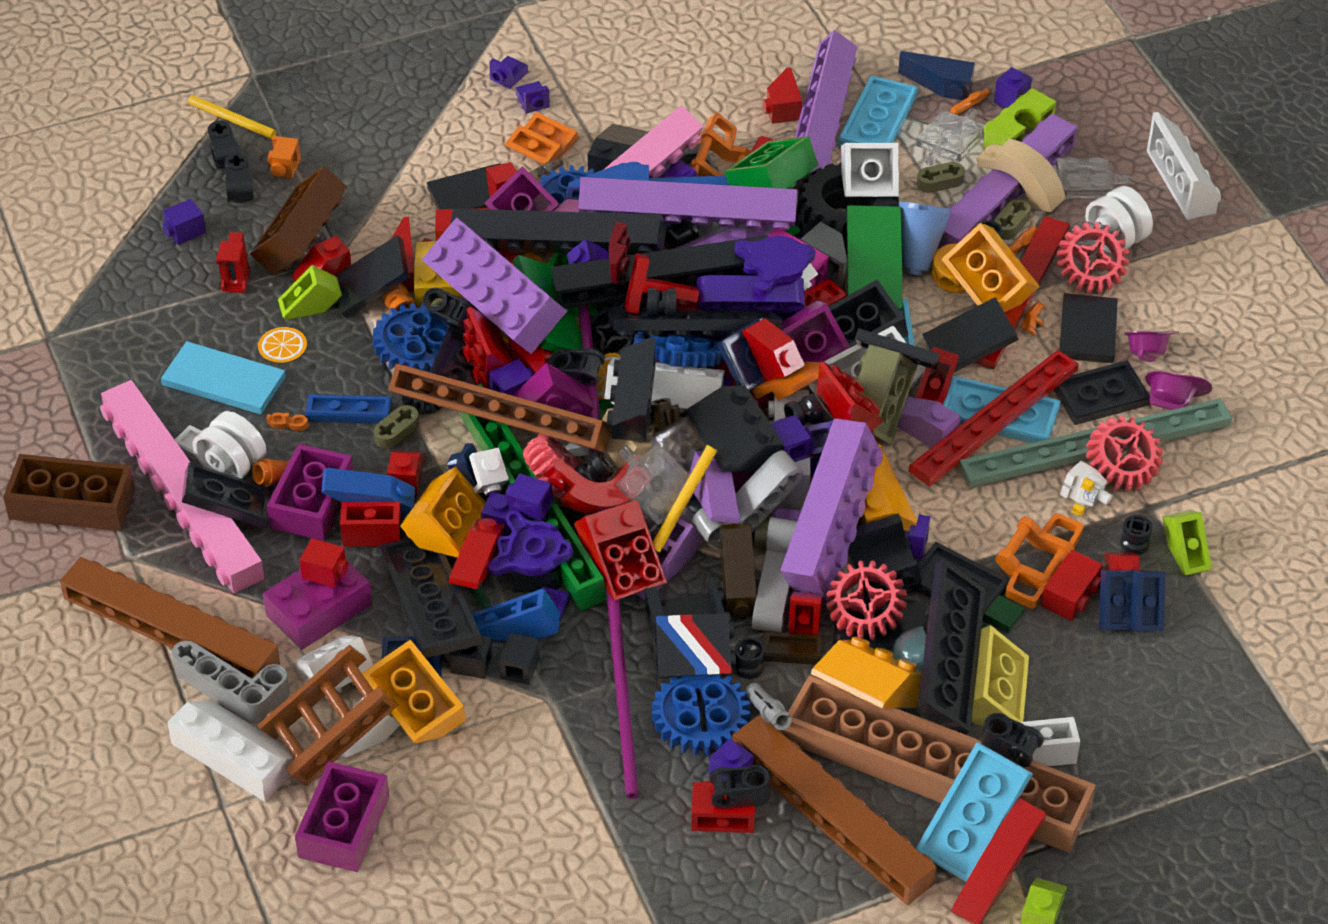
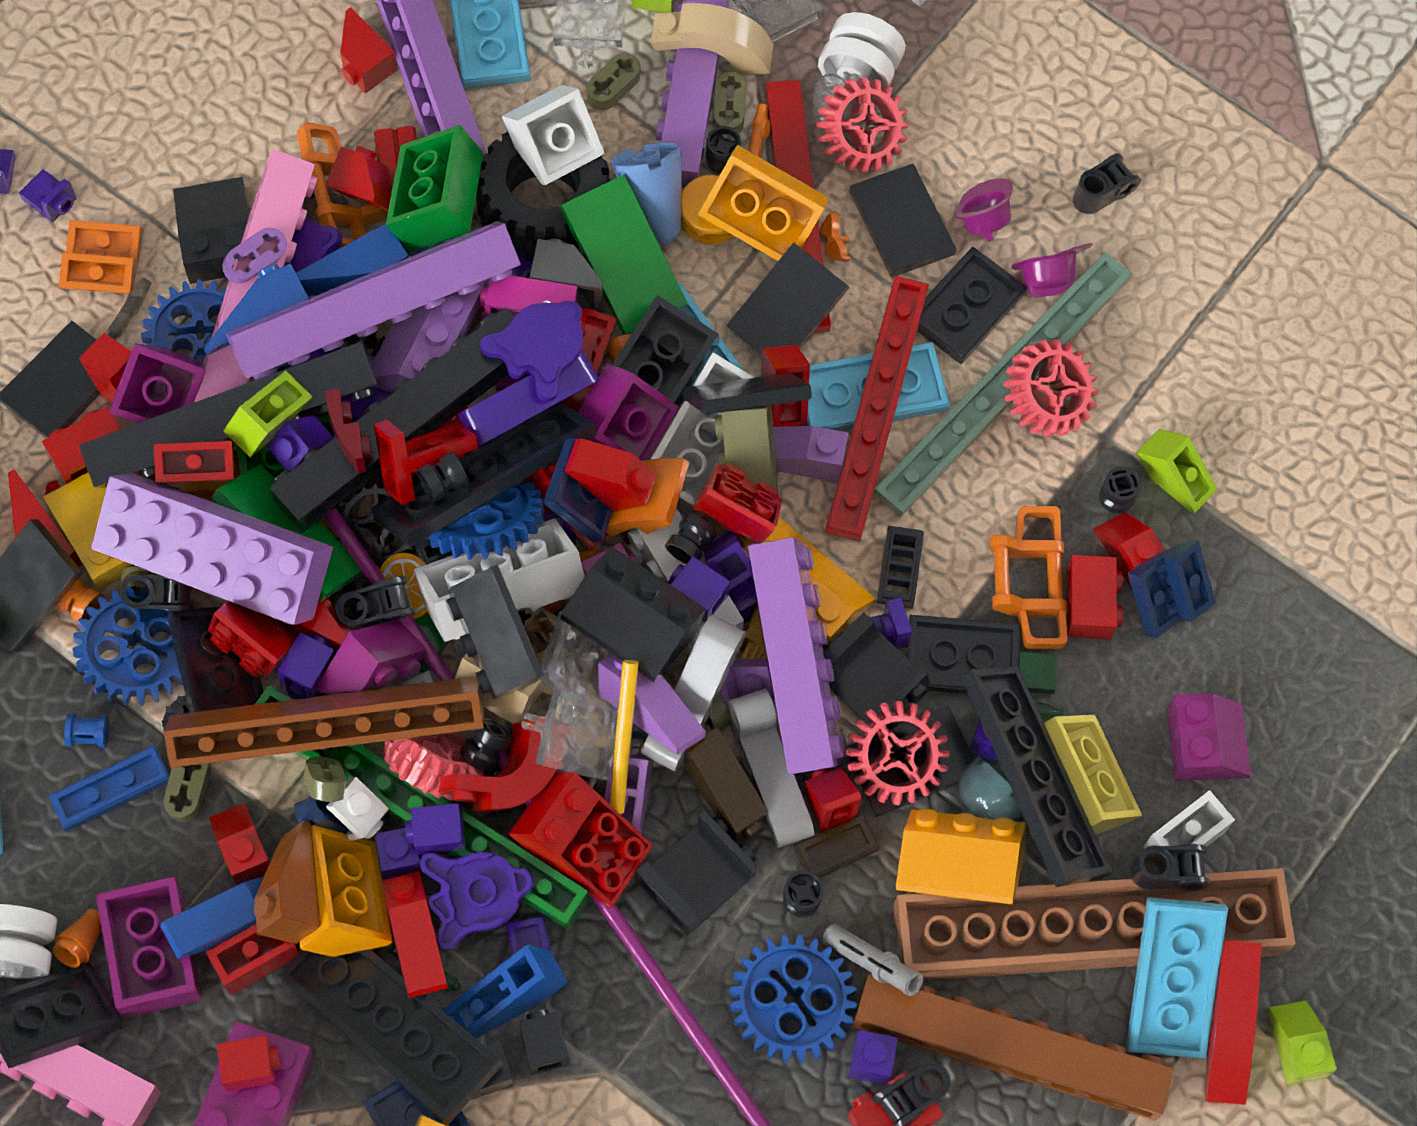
camera: 35 degrees left, 20 degrees up
(283, 421) = (35, 852): orange piece -> none
(356, 370) = (86, 730): none -> blue bush
(410, 492) = (287, 895): none -> dark orange slope
(477, 437) = (324, 779): none -> olive beam
(515, 237) = (194, 461): none -> red brick
(571, 227) = (266, 413): none -> lime slope
(630, 152) = (249, 248): none -> medium lavender beam
(693, 645) = (741, 926): panel -> none
(729, 150) = (361, 177): none -> red slope
(958, 498) = (903, 537): none -> black slope
(1085, 487) = (1030, 453): white piece -> none
(1101, 700) = (1207, 738): none -> magenta slope
(1246, 361) = (1109, 181): none -> black piece

